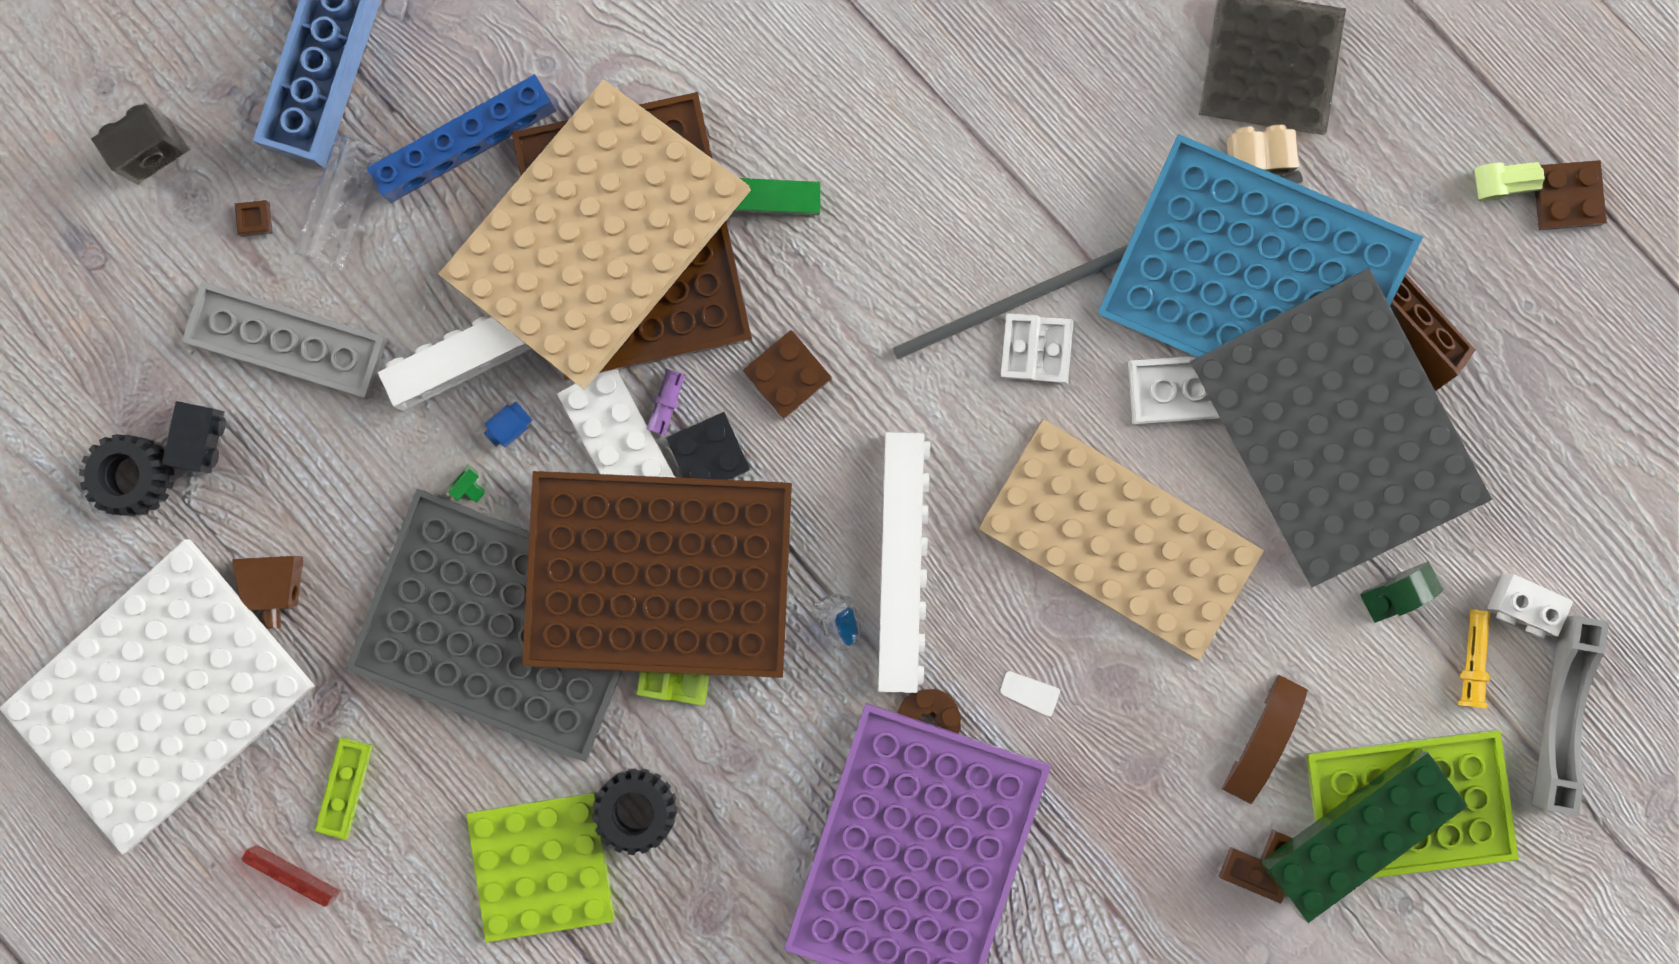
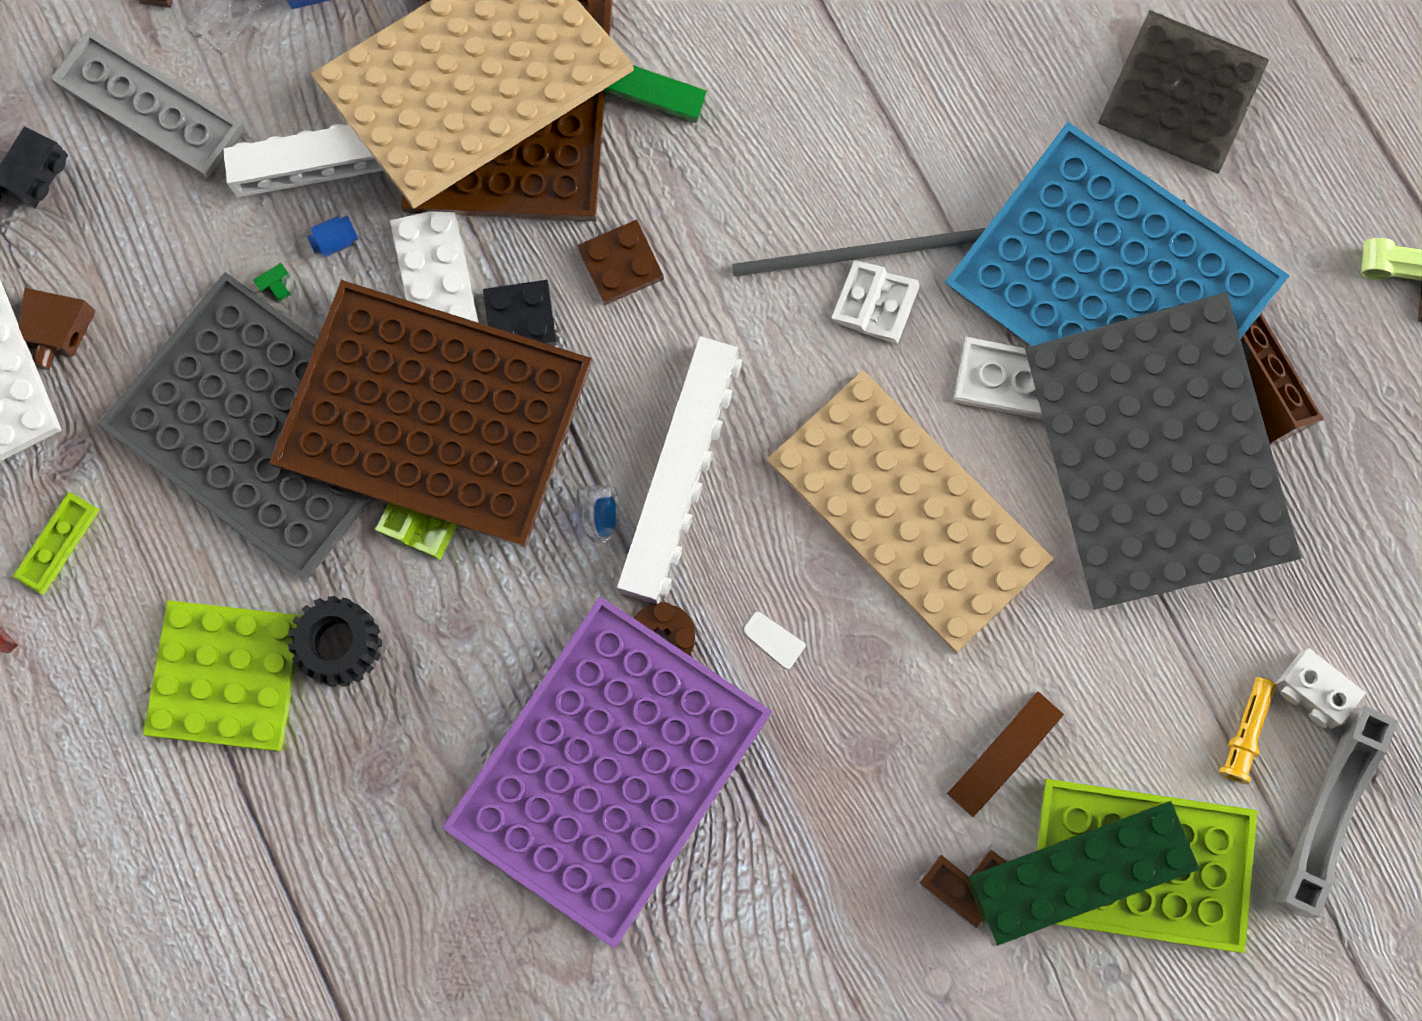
camera: 20 degrees right, 10 degrees down
(666, 401) = (493, 255): medium lavender pin -> none
(1269, 150) = (1163, 166): tan brick -> none
(1403, 593) = (1187, 637): dark green brick -> none

